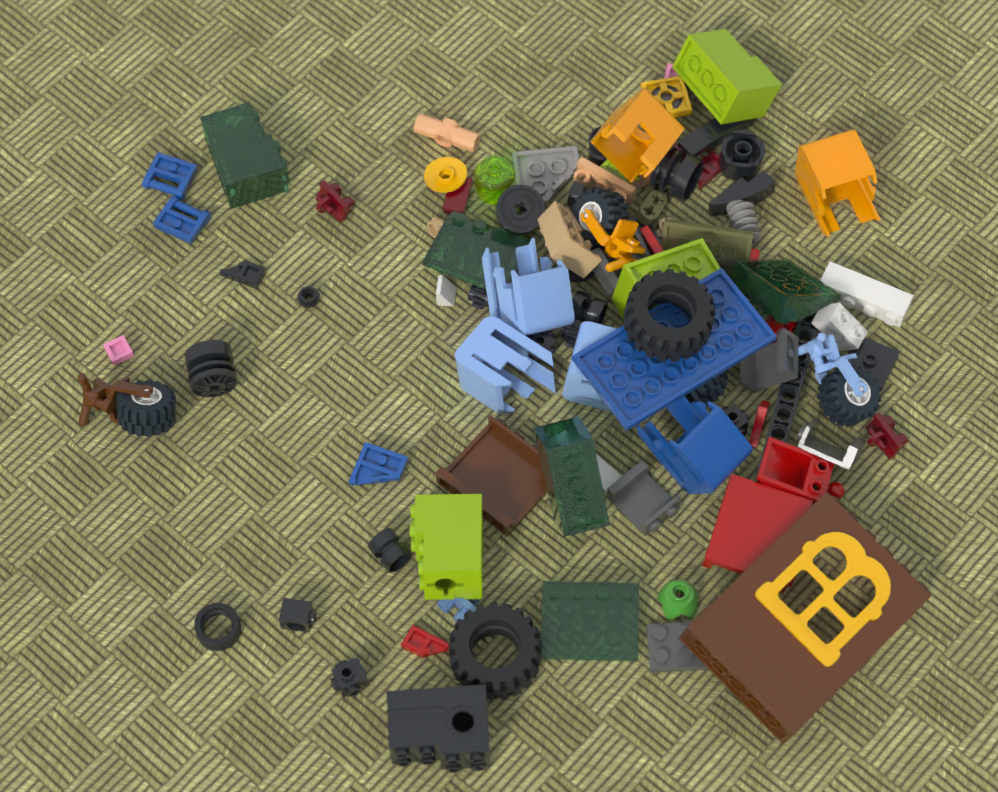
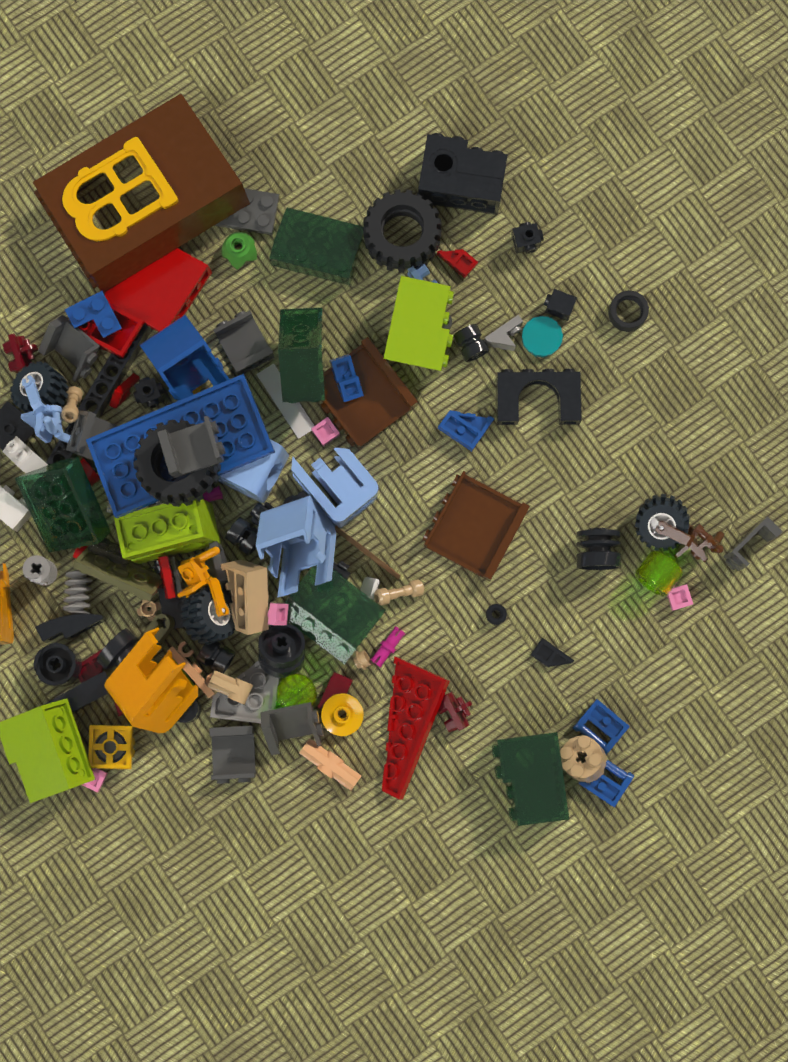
camera: 170 degrees left, 20 degrees up
(53, 413) = (765, 528): none -> dark grey panel
(143, 360) = (659, 573): none -> clear neon green head
(195, 179) = (594, 756): none -> tan brick
(279, 532) = (564, 384): none -> black arch
(311, 580) = (542, 336): none -> teal tile
(345, 373) = (475, 526): none -> reddish brown panel
(358, 566) = (500, 337): none -> light grey slope
(375, 185) = (411, 717): none -> red wing
(414, 245) = (387, 646): none -> dark pink pin
(427, 278) = (414, 588): none -> tan piece
(445, 317) = (367, 552): none -> medium nougat sticker
(512, 142) = (290, 723): none -> dark grey panel
(520, 485) = (346, 378): none -> blue slope
(526, 428) = (325, 431): none -> bright pink plate
(530, 229) = (278, 614): none -> bright pink plate
(545, 122) = (233, 754): none -> dark grey panel
(557, 168) = (234, 688): none -> tan piece
(655, 314) = (192, 448): none -> dark grey panel
(787, 229) = (32, 571): none -> light grey piece
(806, 371) = (70, 411): none -> tan piece
(814, 479) = (97, 309): none -> blue plate

